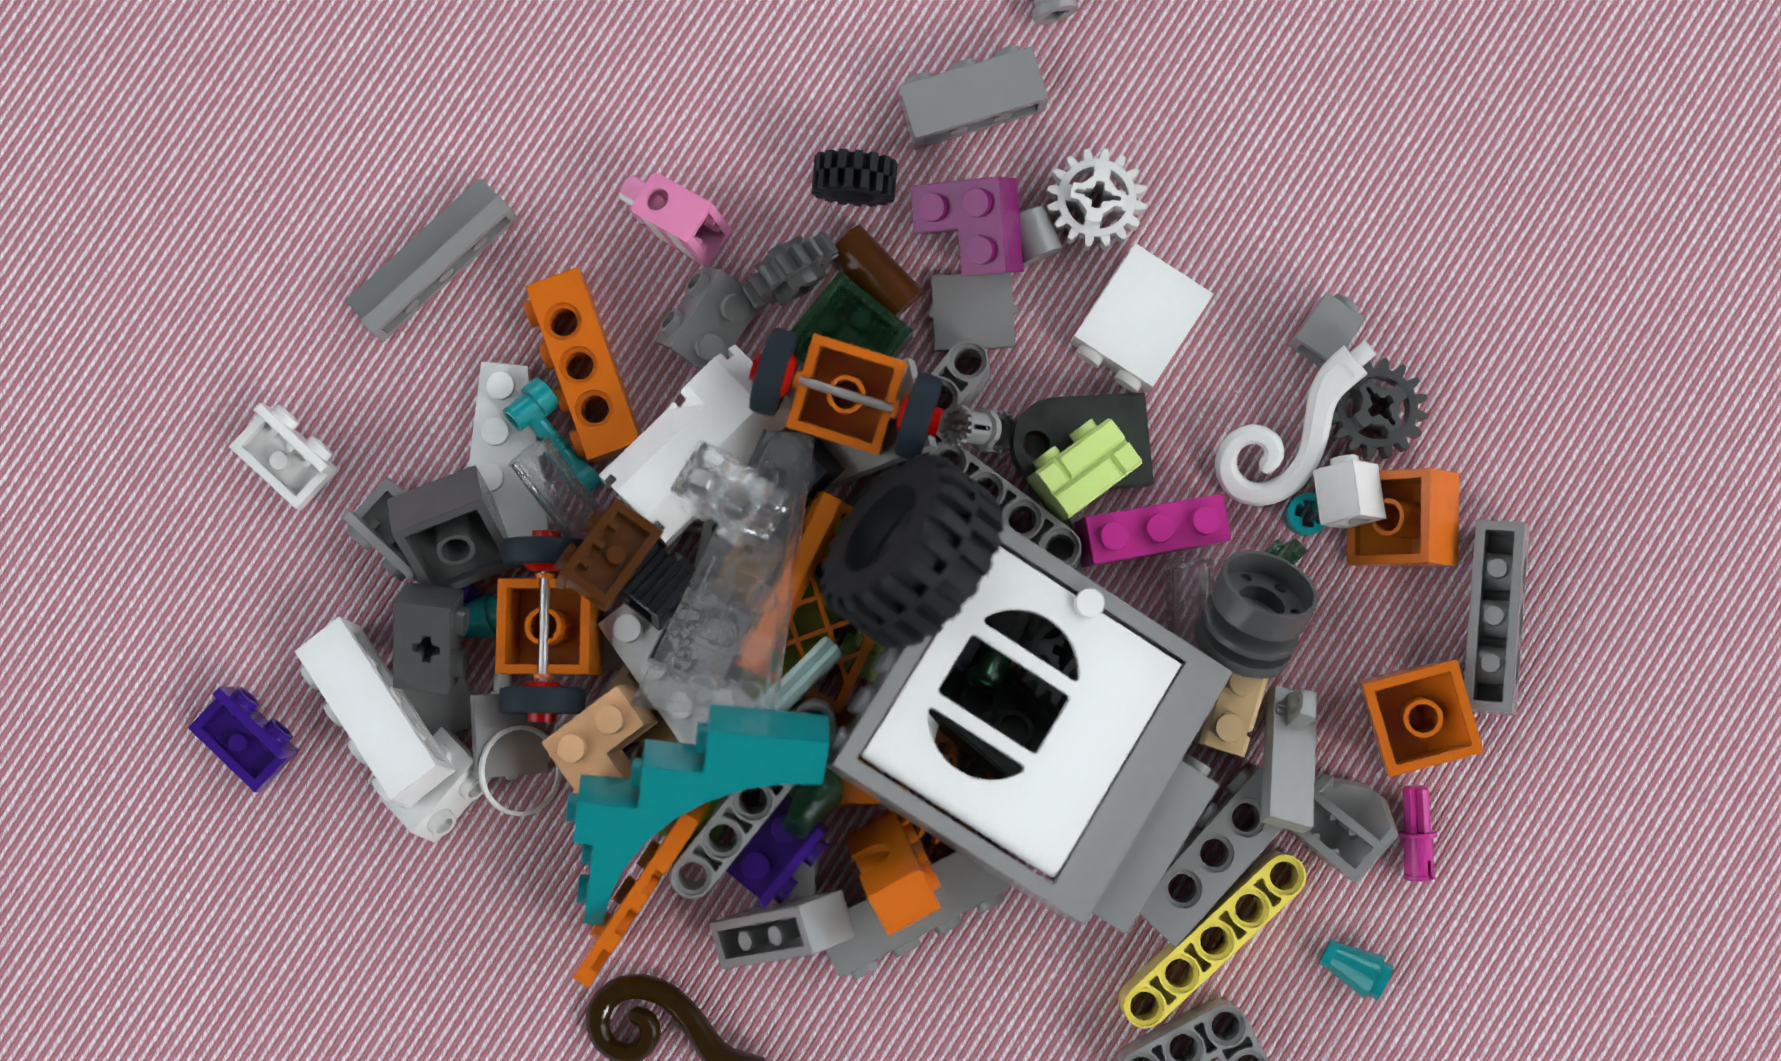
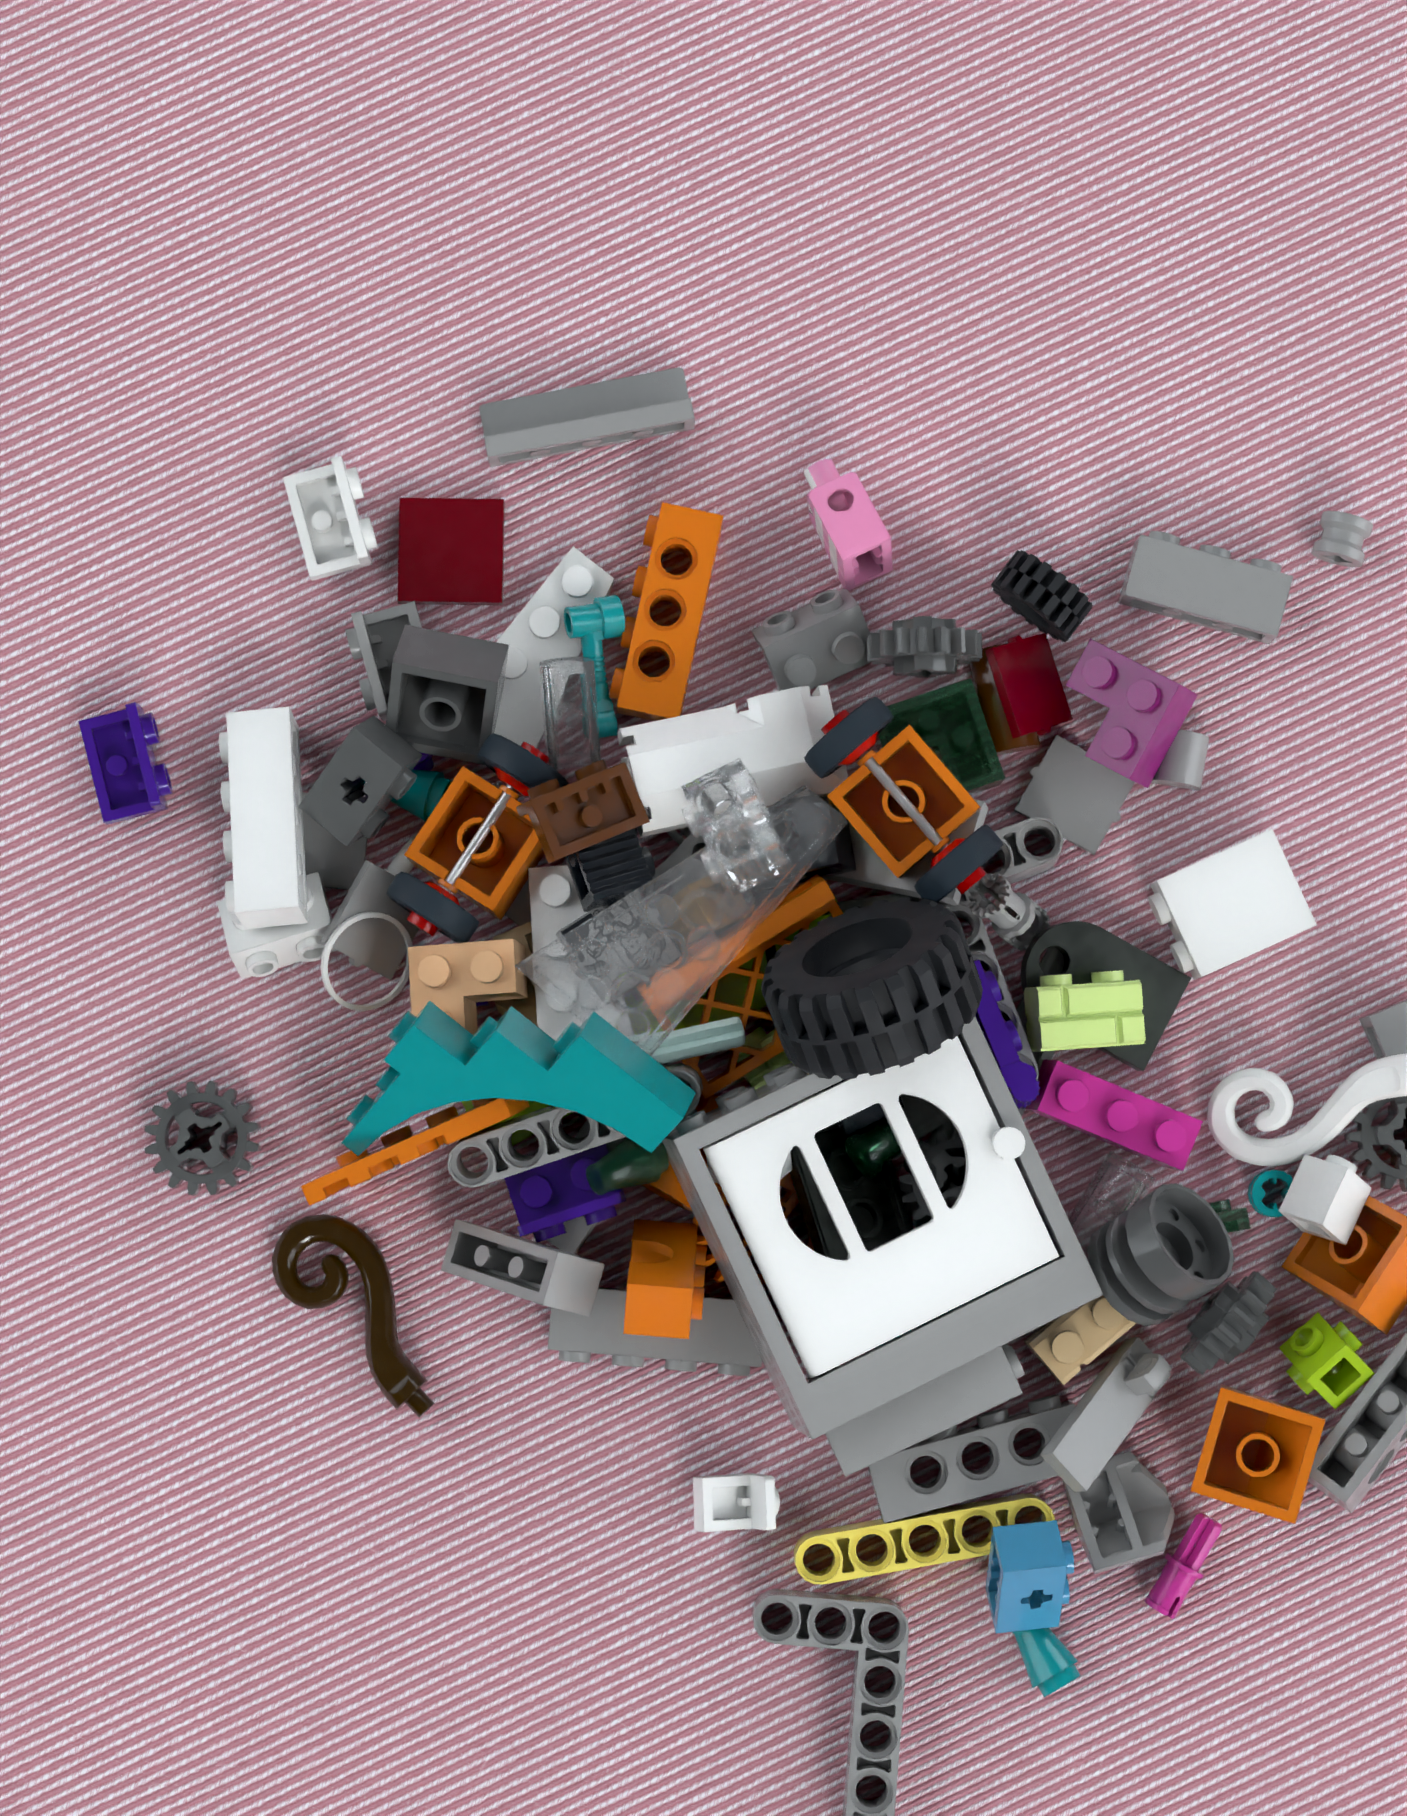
camera: 25 degrees right, 0 degrees up
(392, 422) = (451, 551): none -> dark red tile
(460, 975) = (188, 1119): none -> dark grey gear
(886, 250) = (1028, 685): none -> dark red piece
(1038, 528) = (1005, 1043): none -> dark purple hinge
(1054, 1002) = (735, 1502): none -> white bracket
(1113, 200) = (1244, 748): white gear -> none
(1309, 918) = (1028, 1576): none -> dark azure brick
(1337, 632) = (1228, 1322): none -> dark grey gear
(1426, 613) = (1326, 1360): none -> lime brick

